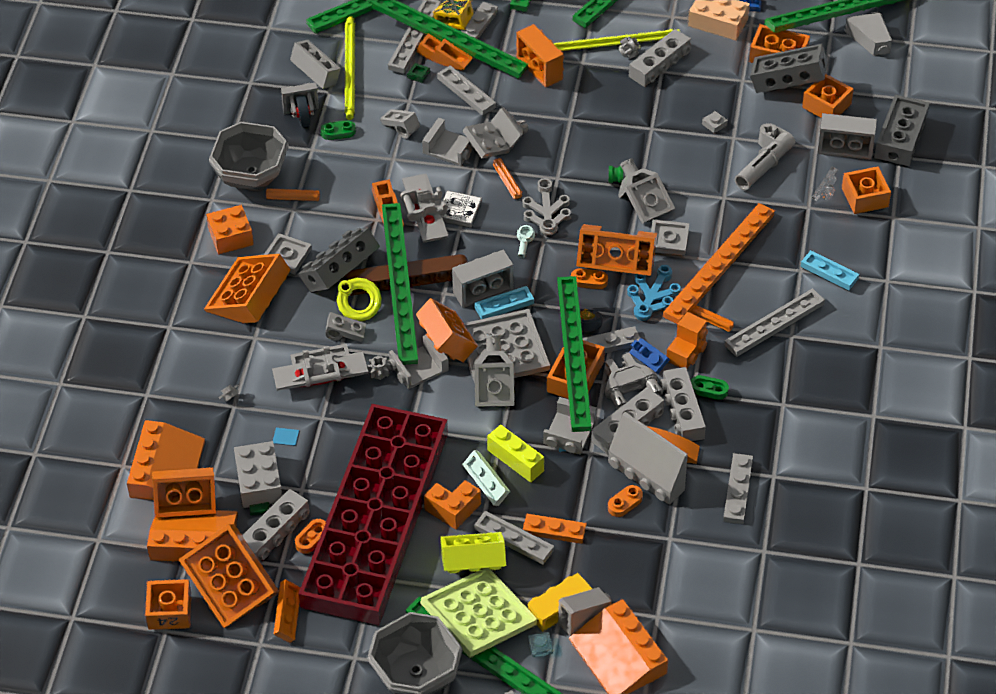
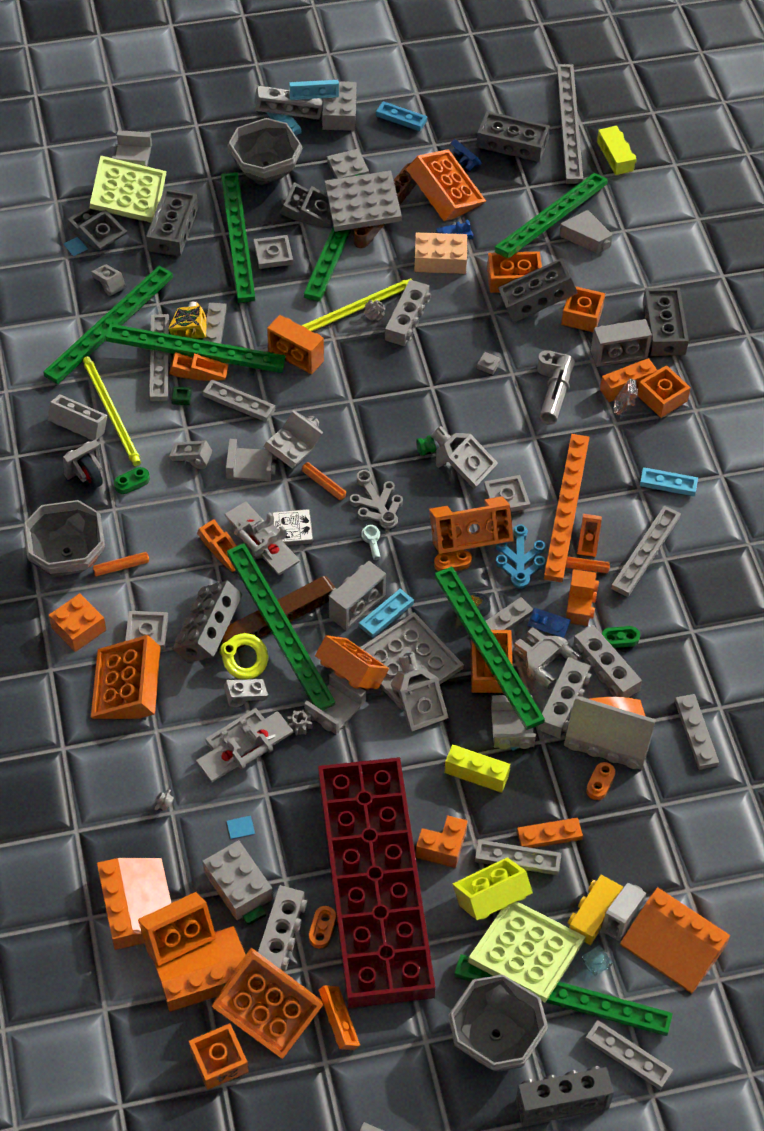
camera: 25 degrees left, 5 degrees up
(486, 478) = (461, 804): light aqua plate -> none
(727, 292) = (589, 535): none -> orange slope
(820, 167) = (614, 382): none -> orange brick

